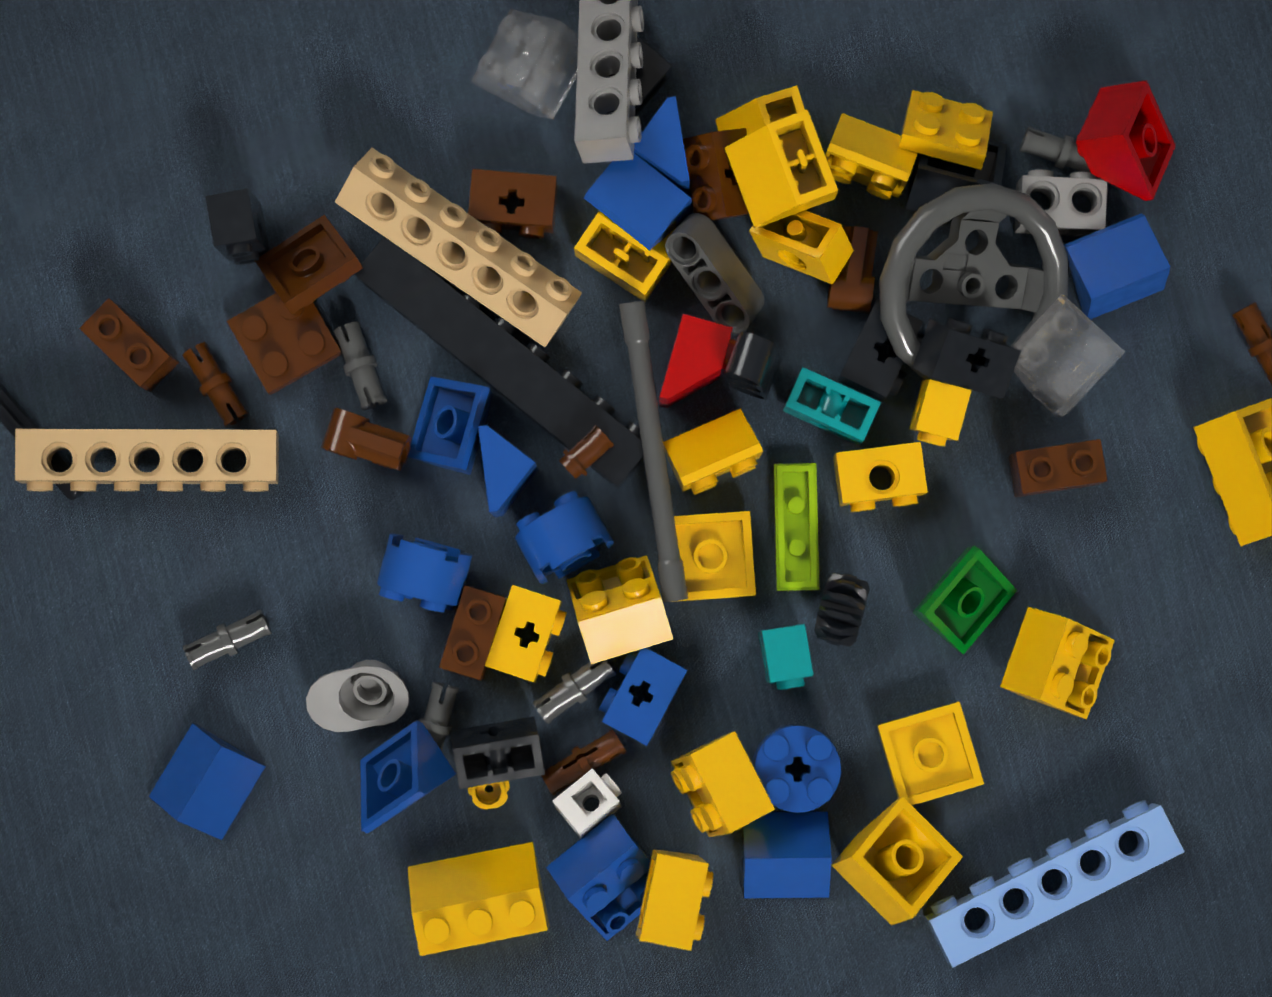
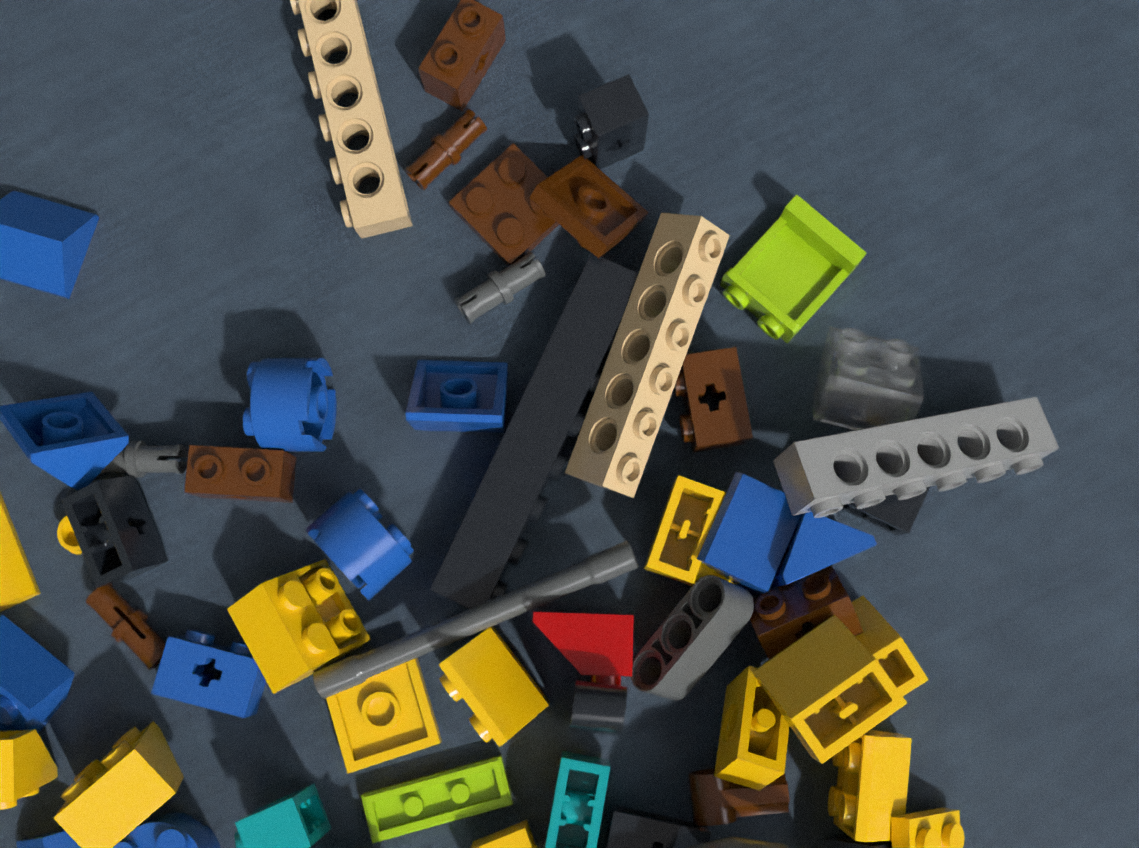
camera: 75 degrees right, 5 degrees down
(227, 639) = (185, 225): dark grey pin -> none
(357, 437) = (423, 300): reddish brown piece -> none
(357, 697) = (148, 372): light grey piece -> none
(412, 101) = (791, 270): none -> lime panel
(505, 470) = (420, 459): blue slope -> none
(506, 650) = (226, 520): yellow brick -> none
(571, 802) = (67, 634): white brick -> none
(573, 689) = (204, 594): dark grey pin -> none
(586, 452) = (456, 545): reddish brown pin -> none

